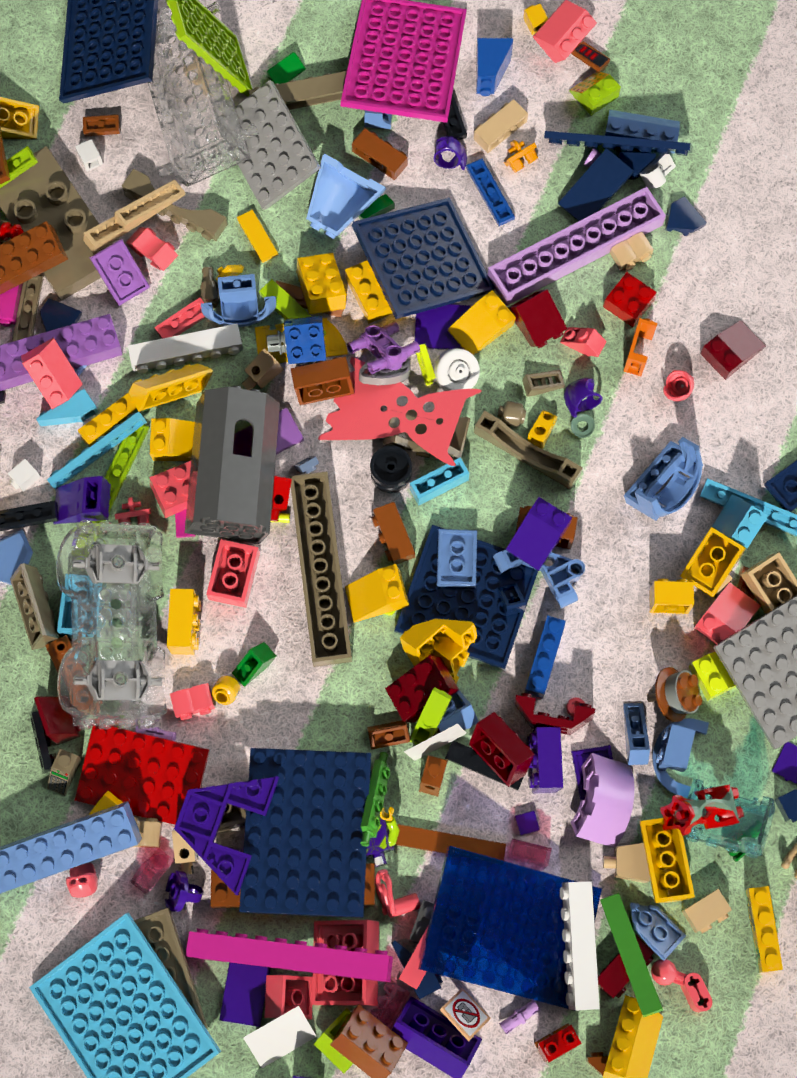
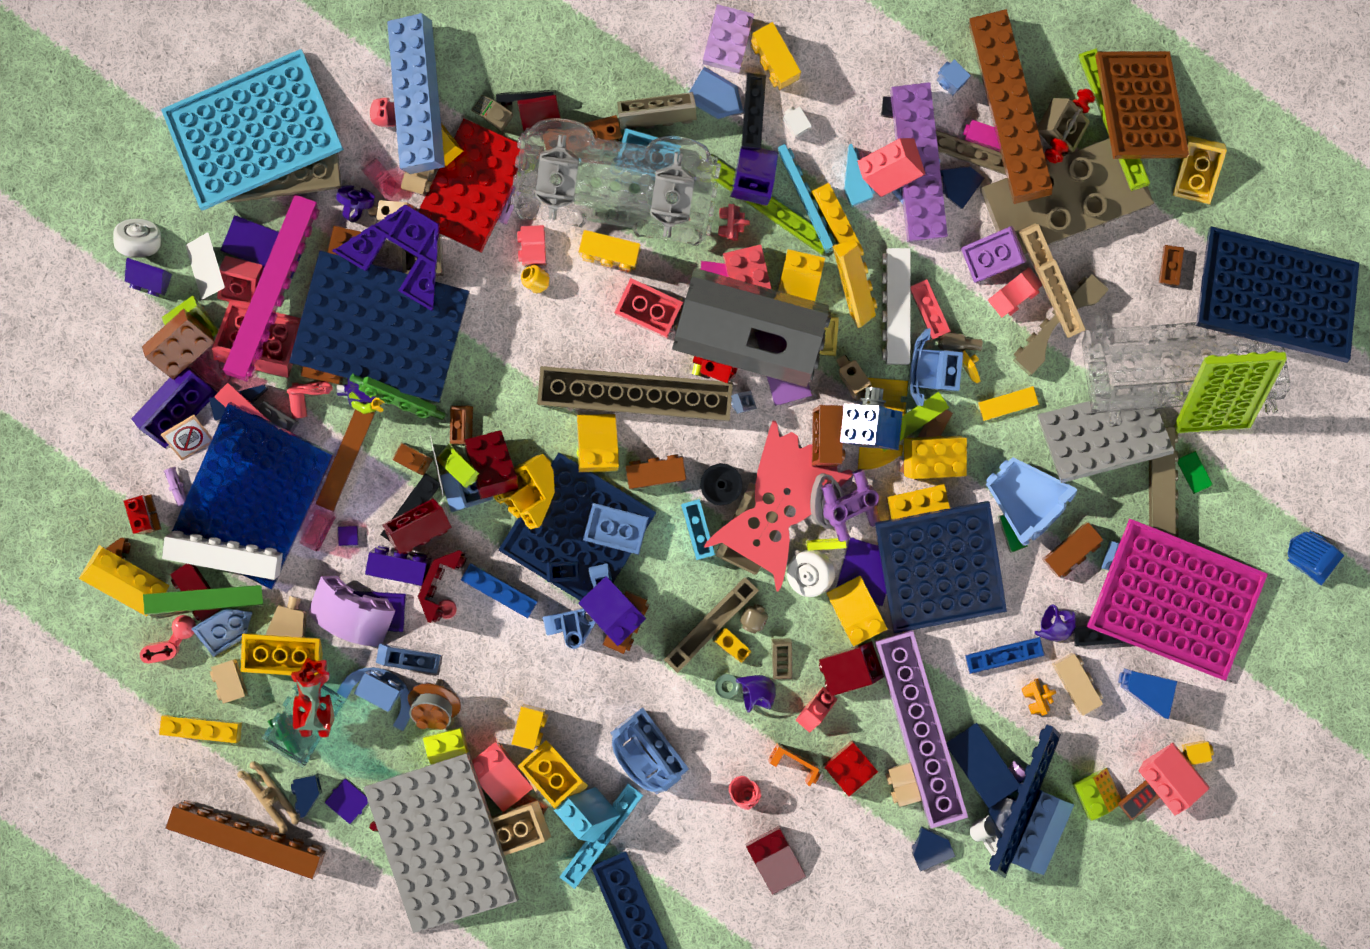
camera: 100 degrees right, 15 degrees up
(89, 155) = (1138, 246): white brick -> none
(254, 663) = (556, 311): green slope -> none

